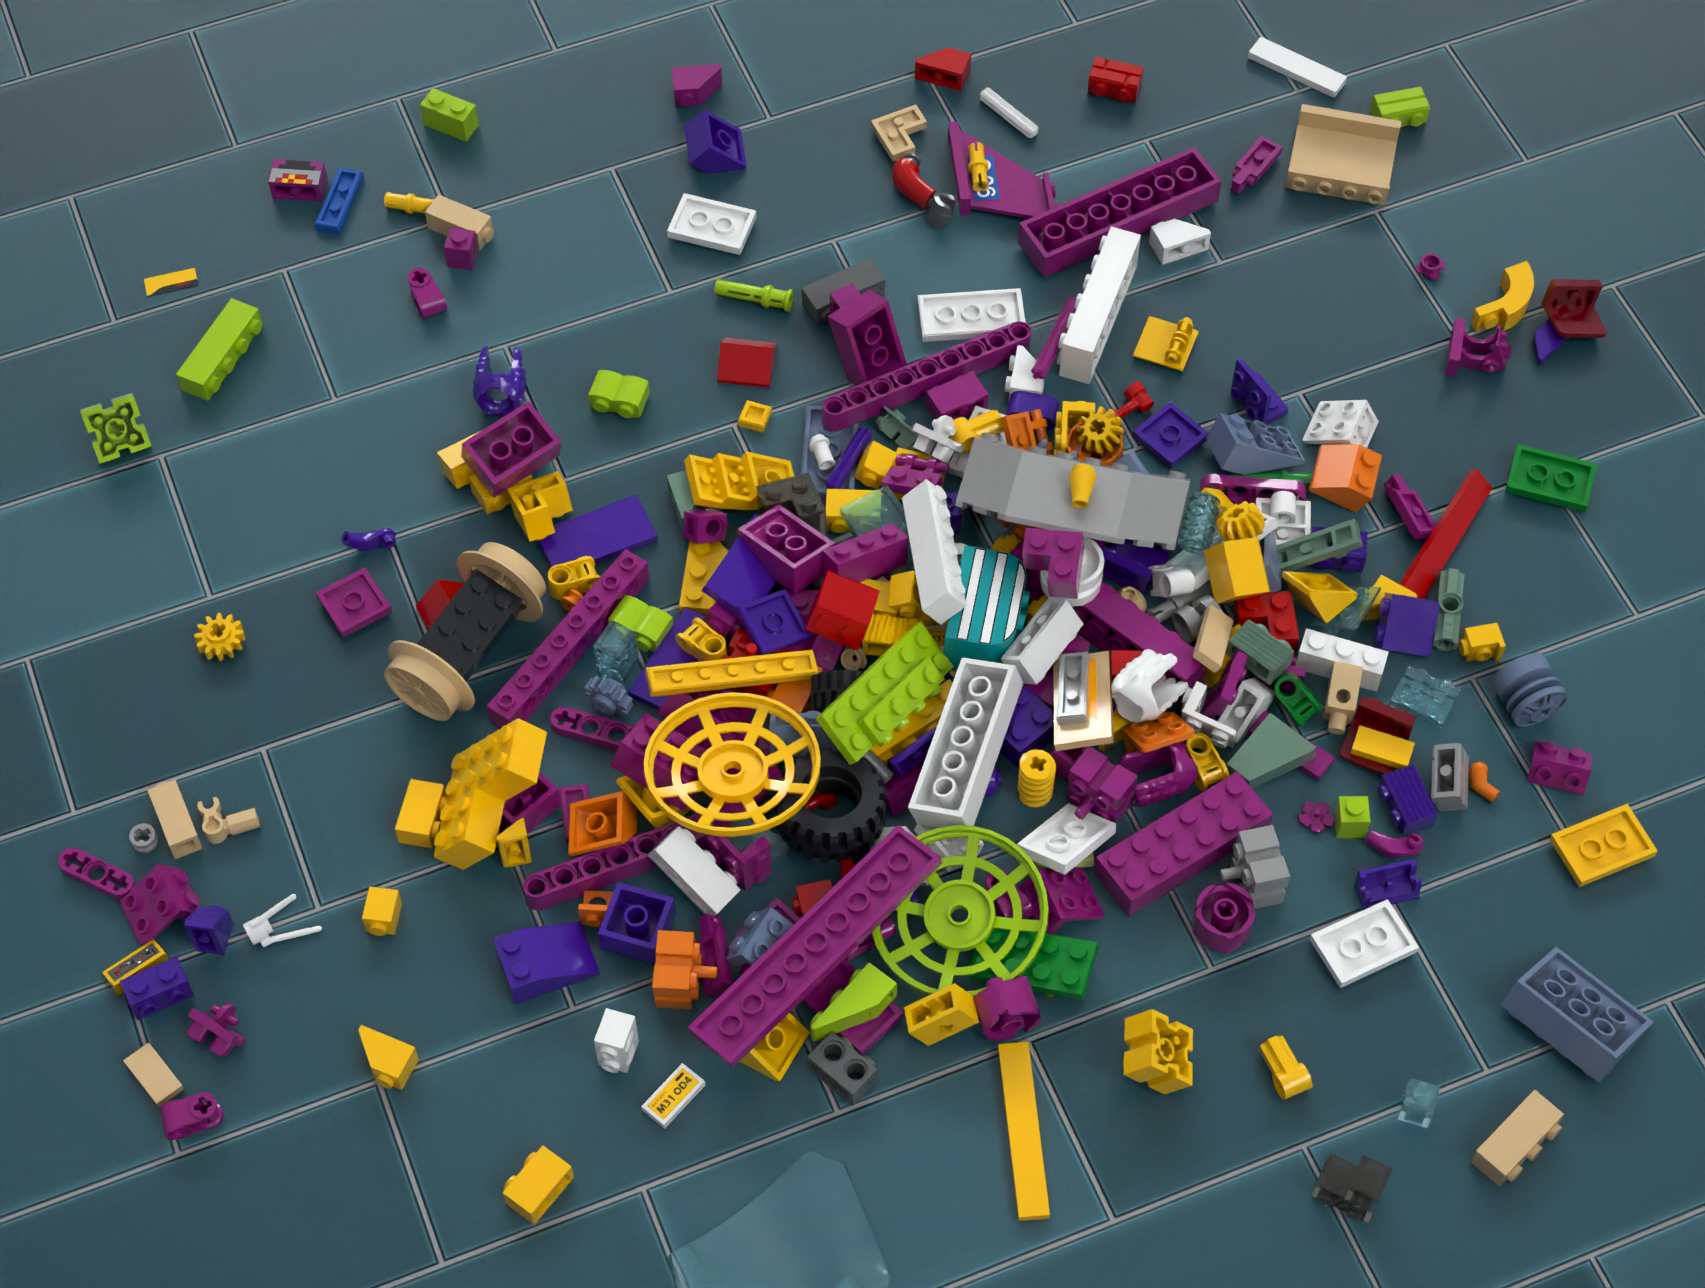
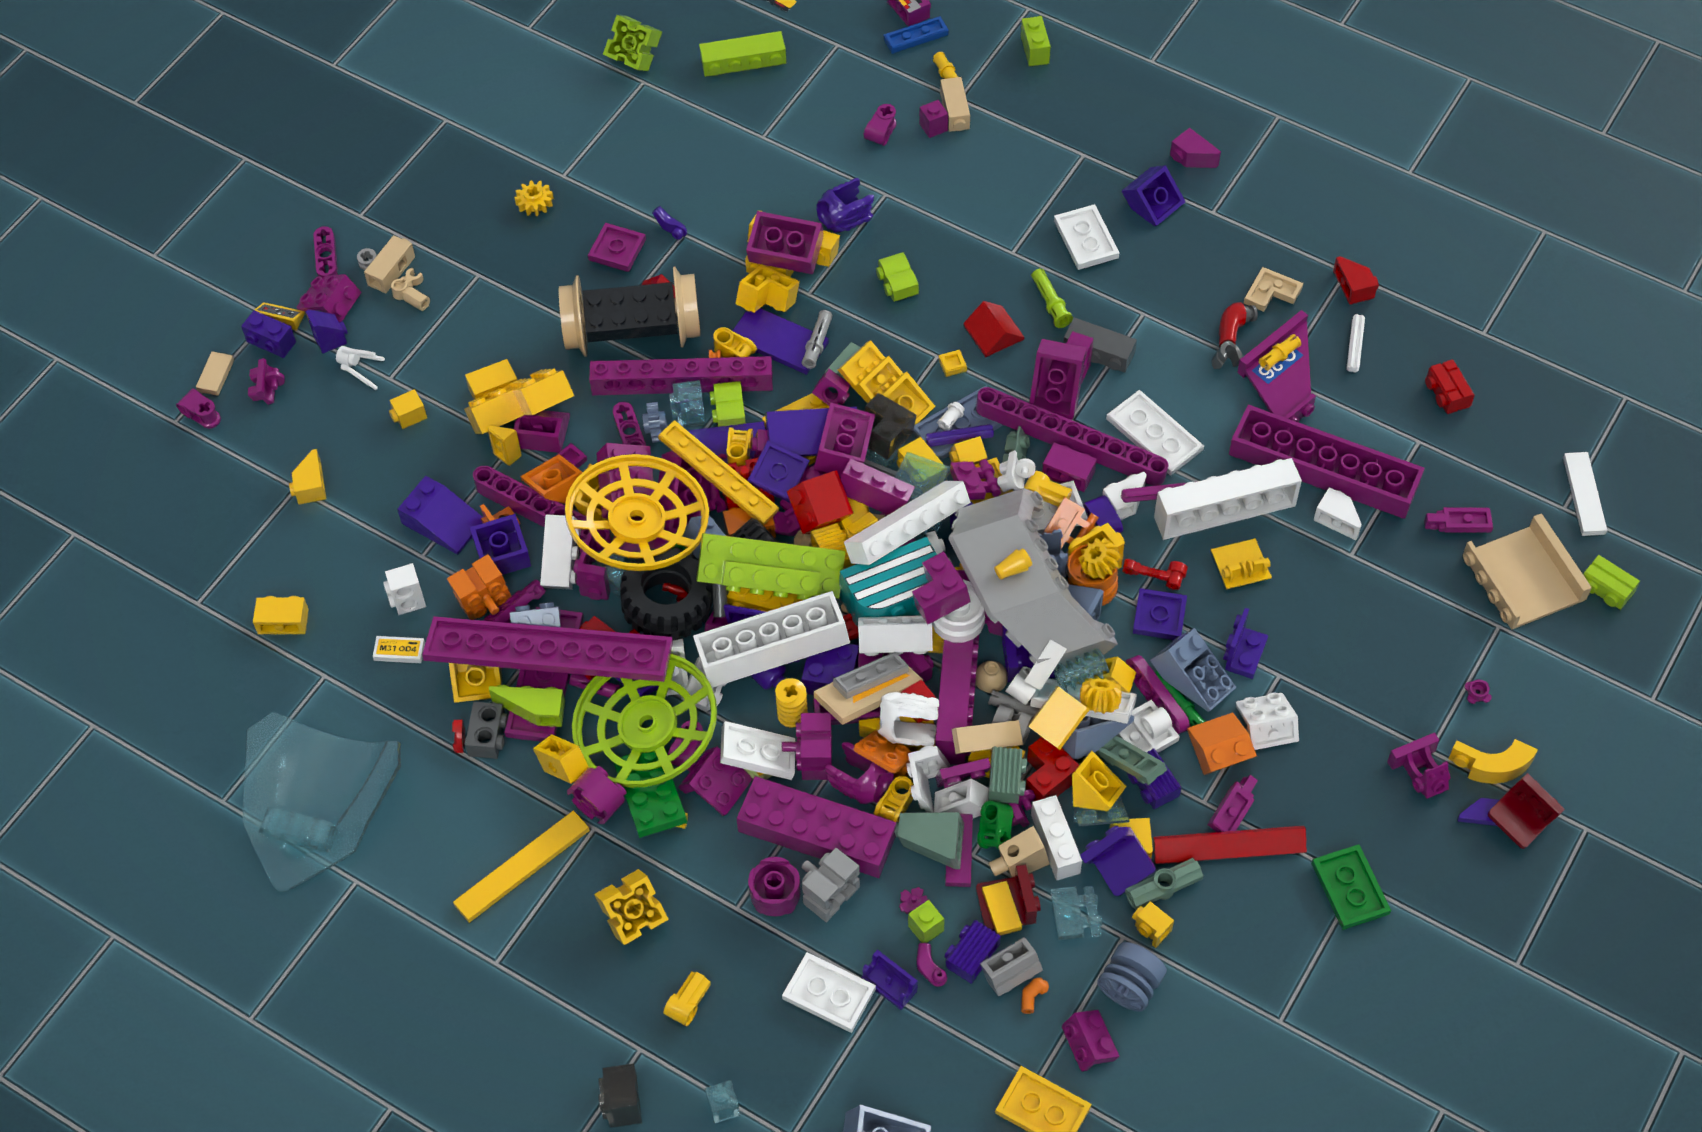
camera: 55 degrees right, 0 degrees up
(640, 508) = (822, 323): none -> light grey pin
(828, 1098) = (459, 739): none -> red tile
(1180, 549) = (1041, 671): none -> white sticker

